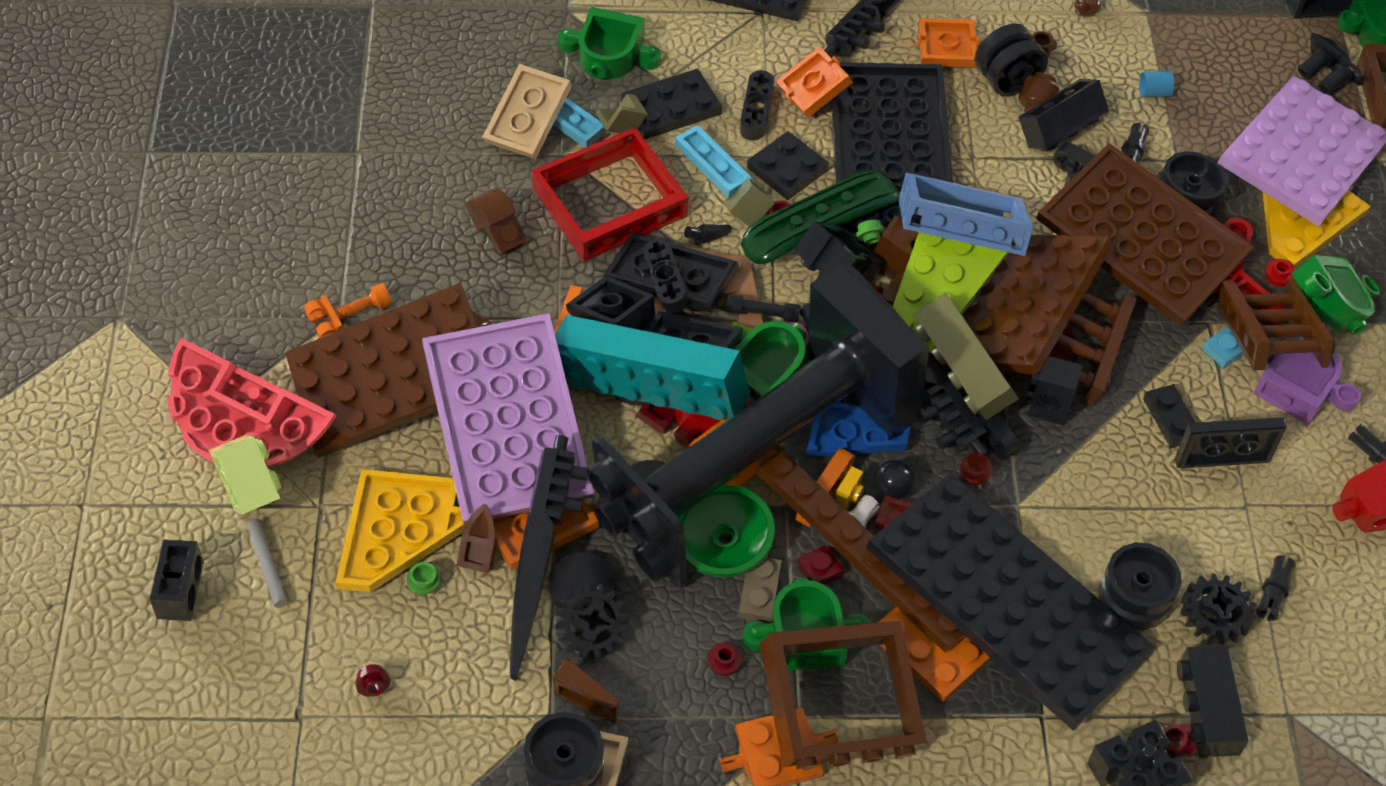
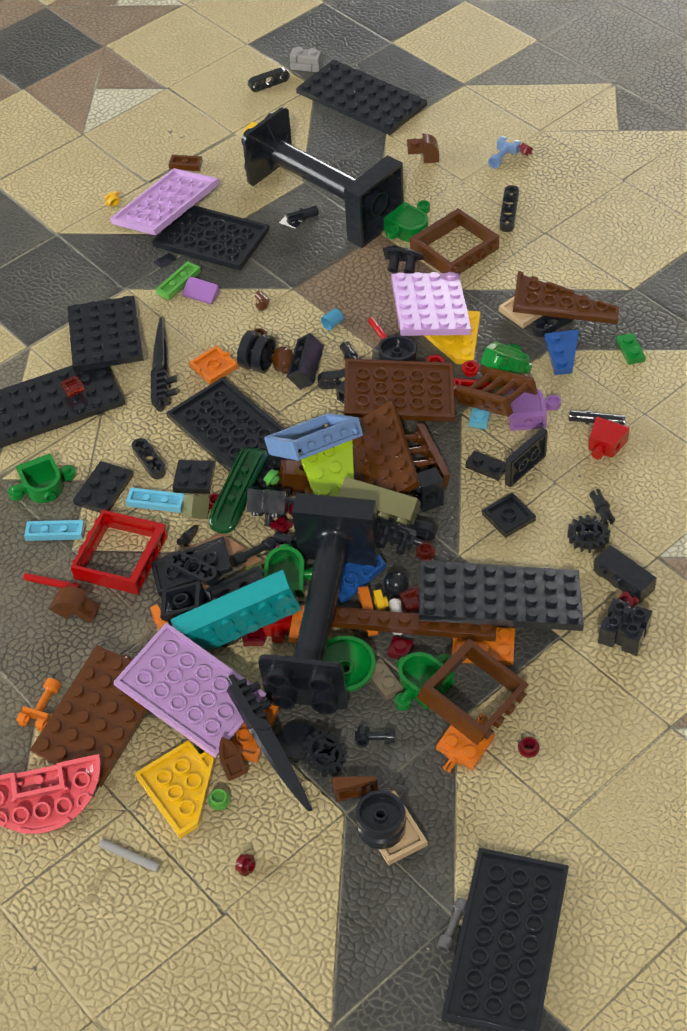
camera: 35 degrees left, 5 degrees down
(176, 580) = (96, 897): black brick -> none
(245, 473) = (81, 818): yellowish green brick -> none
(503, 174) = (48, 581): none -> red bar
(527, 111) = (35, 541): tan plate -> none
(627, 116) = (88, 509): olive panel -> none
(665, 639) = (363, 736): none -> black bar
(722, 667) = (400, 727): dark red plate -> none
(814, 82) = (169, 426): orange plate -> none
(1136, 503) = (508, 515): none -> black tile
(1140, 584) = (549, 546): black wheel -> none
(1206, 135) = (377, 328): none -> red bar

